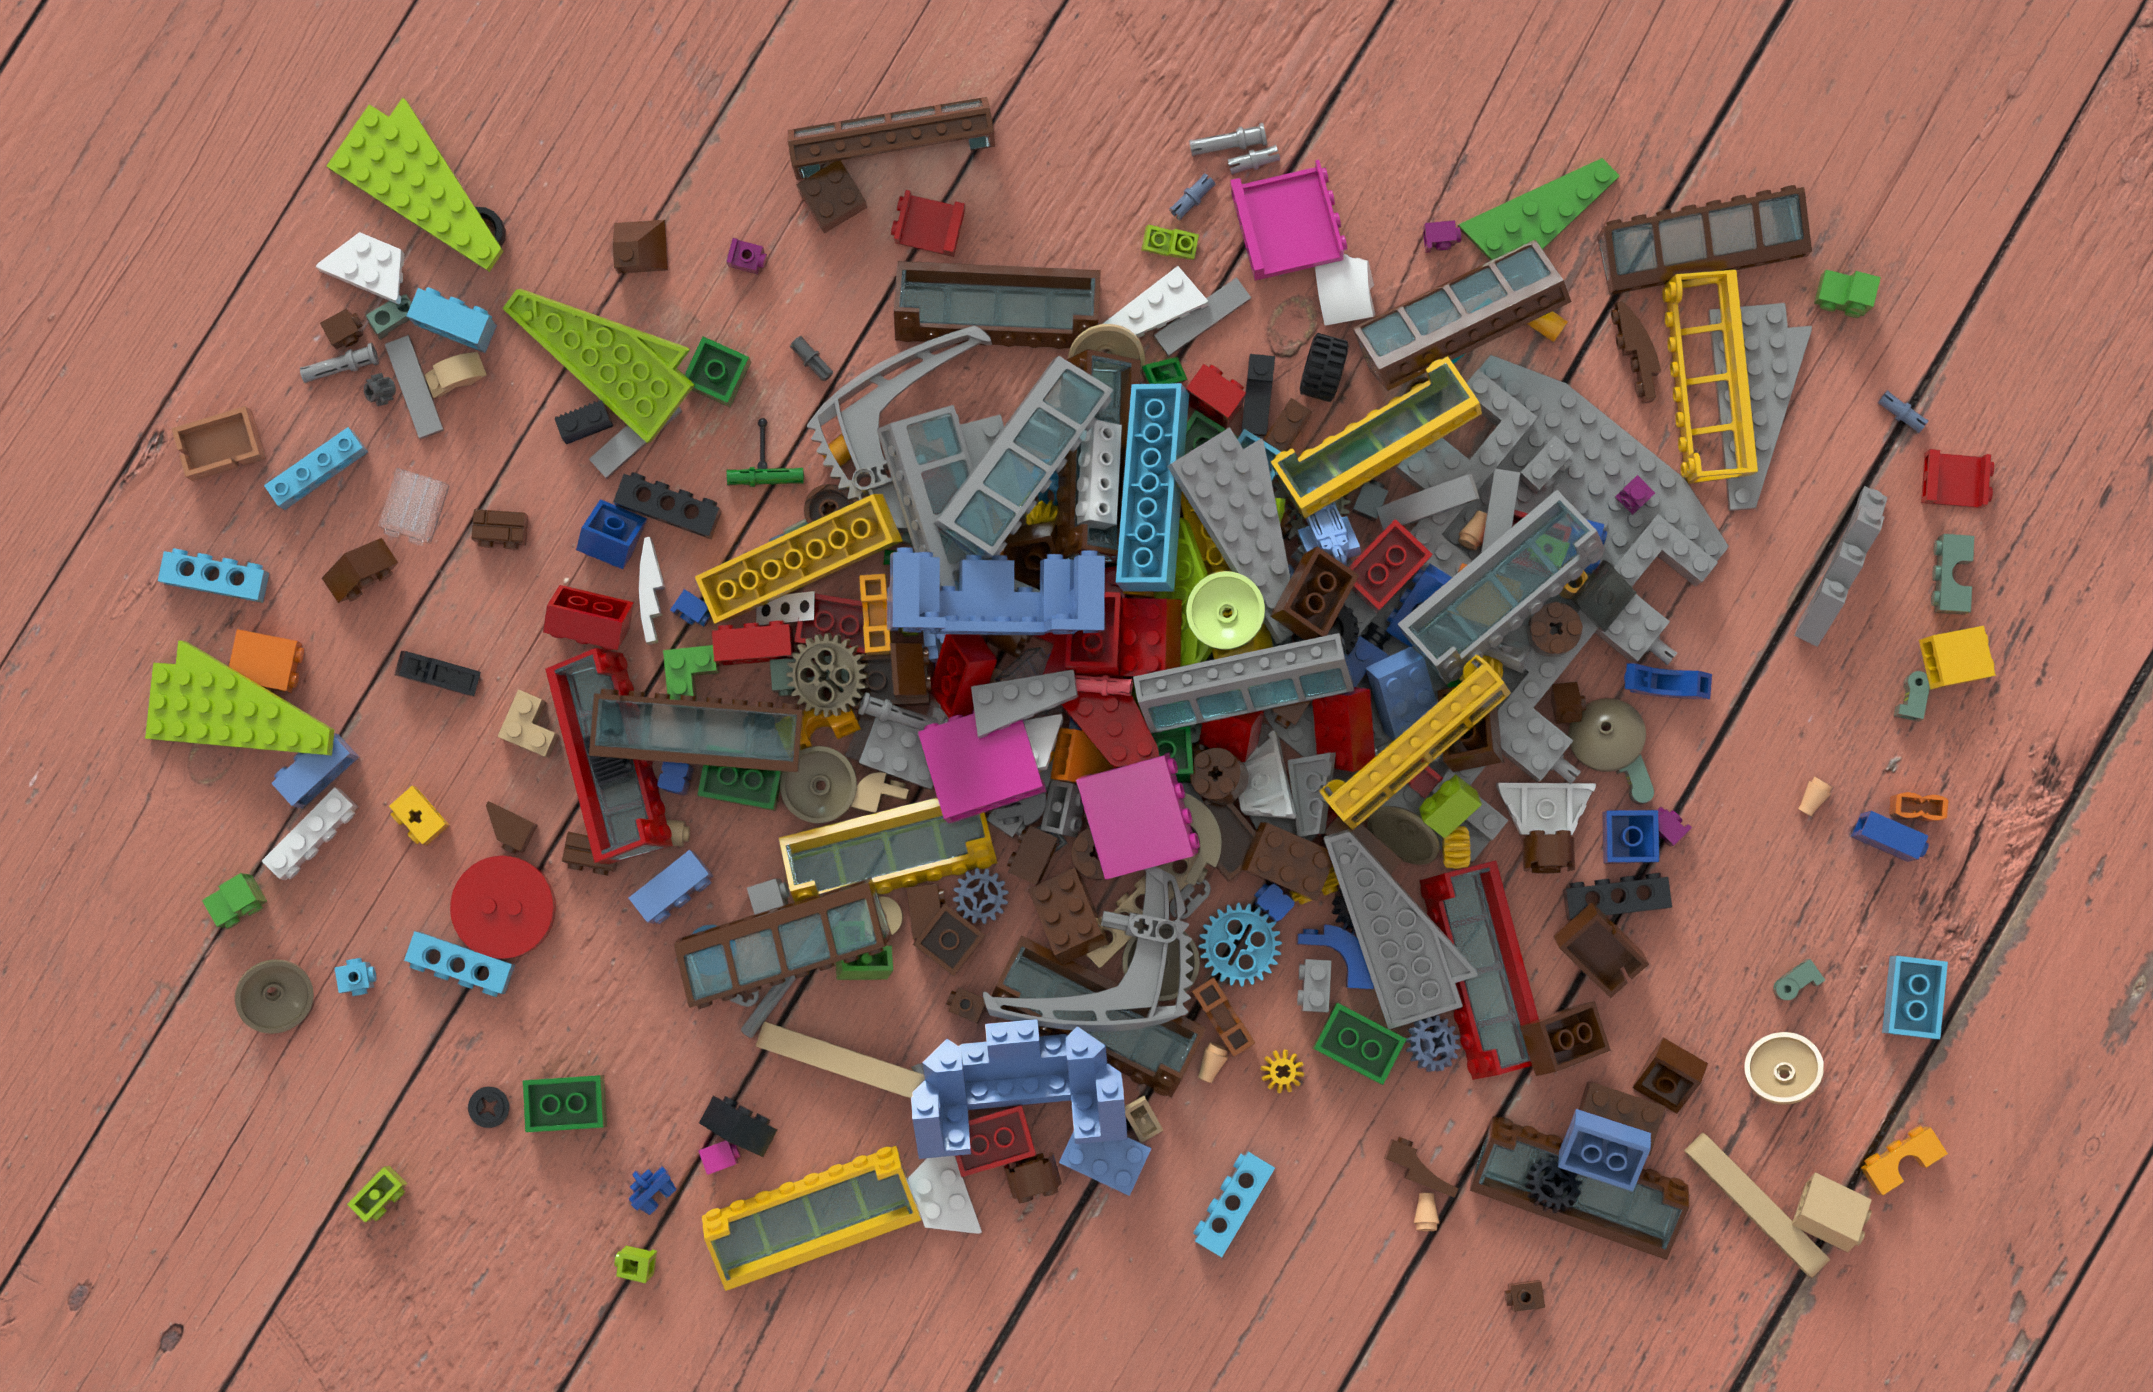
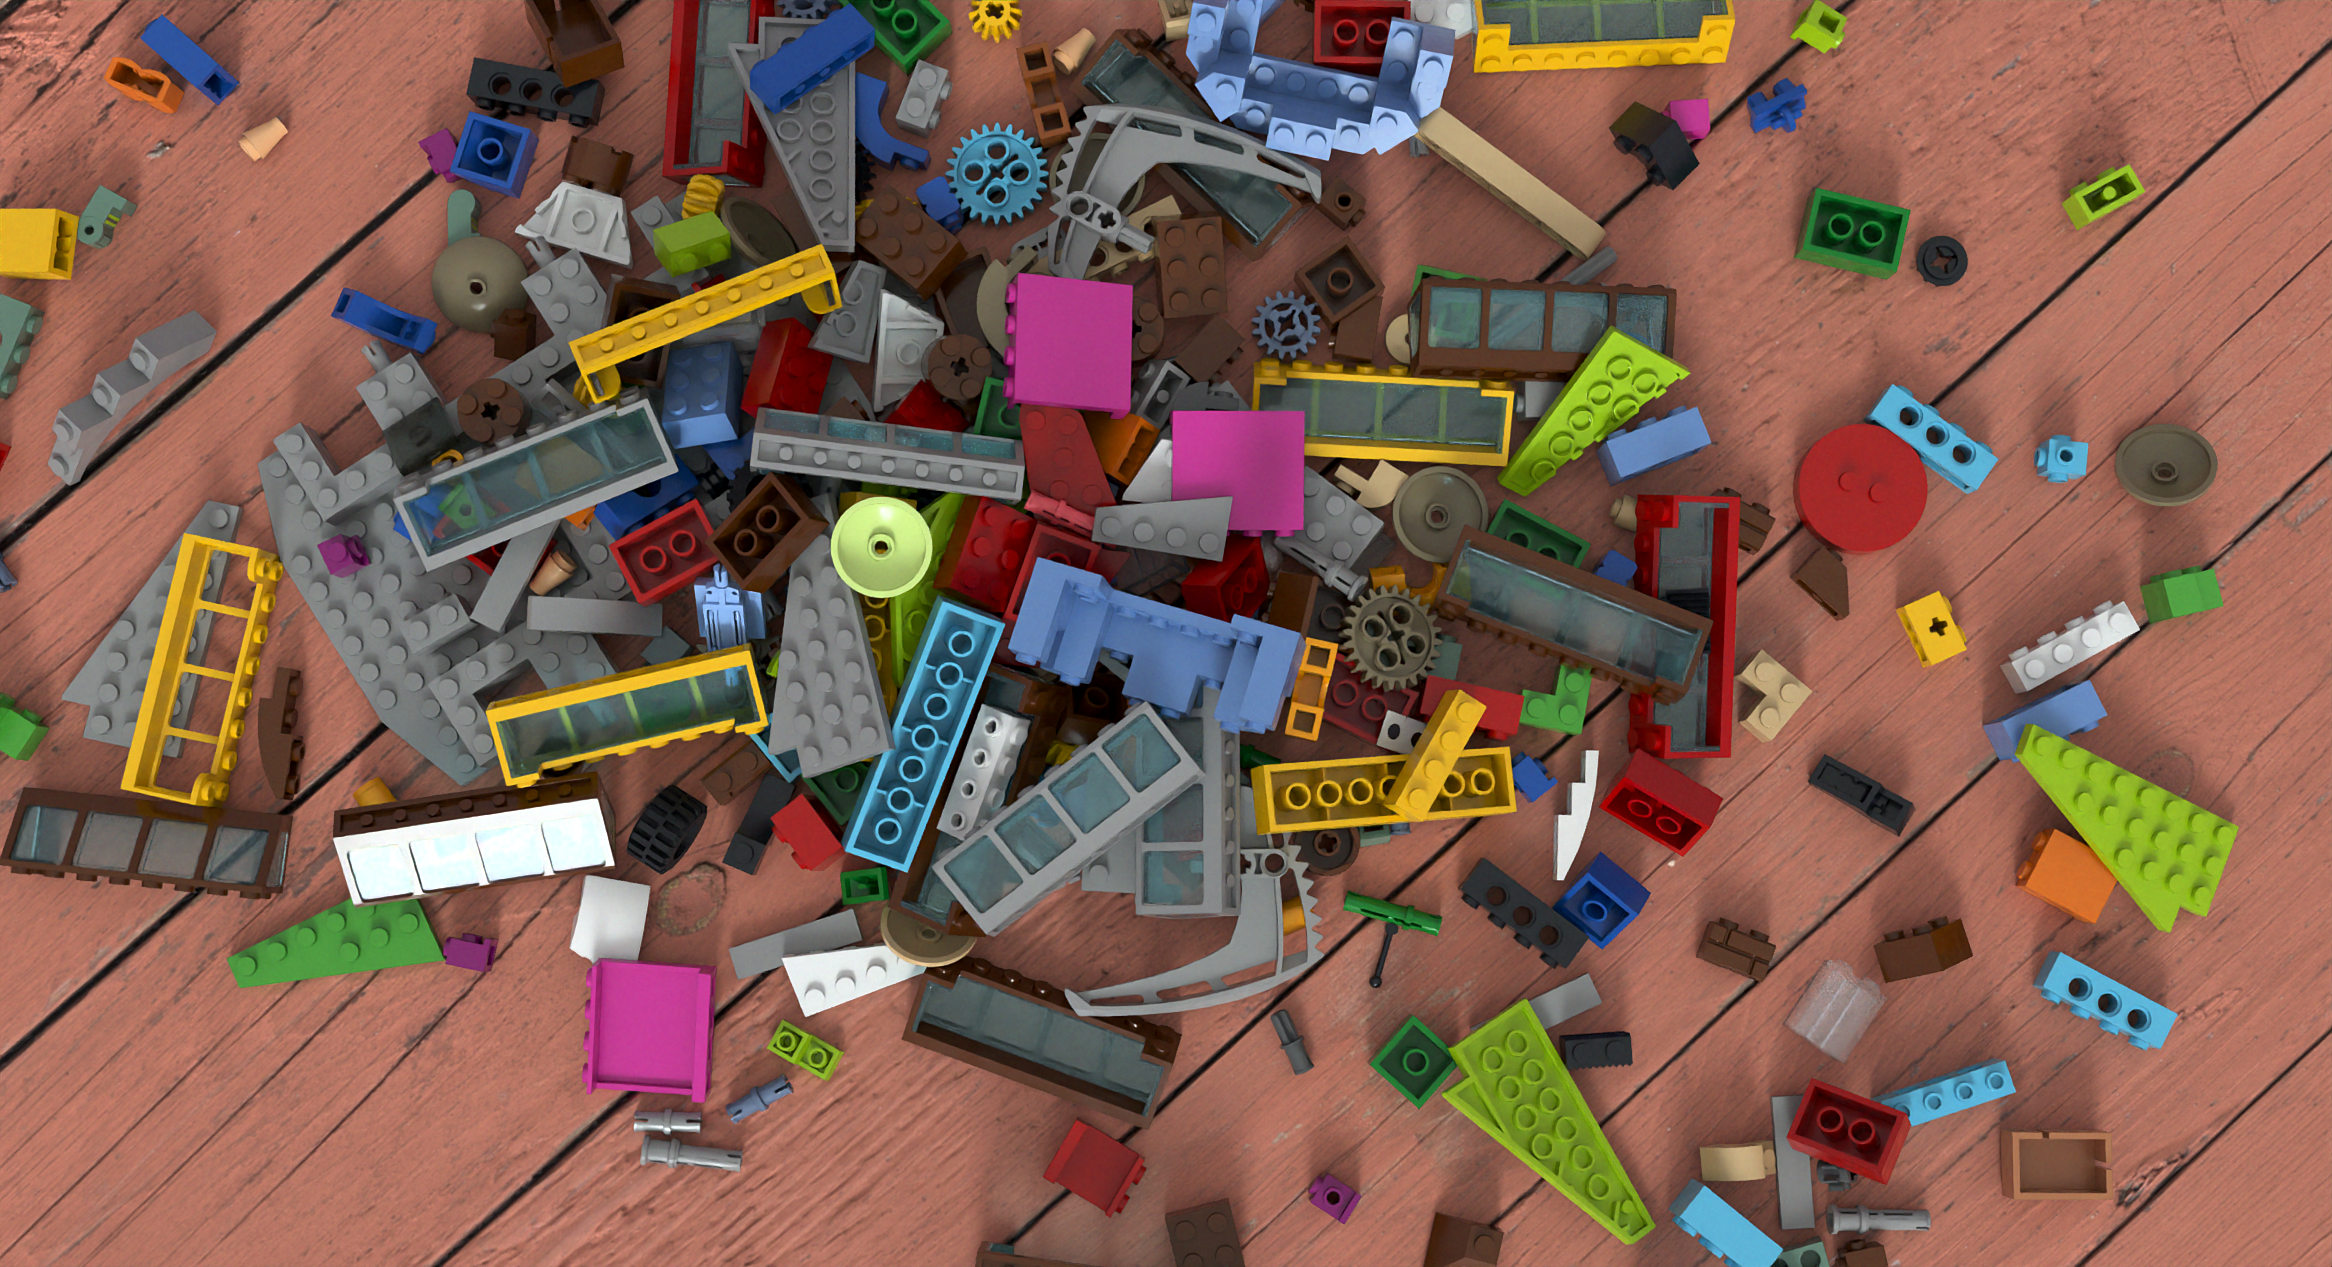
camera: 165 degrees left, 0 degrees up
(380, 417) = (1849, 1131): none -> red brick
(727, 900) = (1595, 402): none -> lime wing
(768, 591) = (1434, 755): none -> yellow brick
(1408, 981) = (811, 58): none -> blue brick

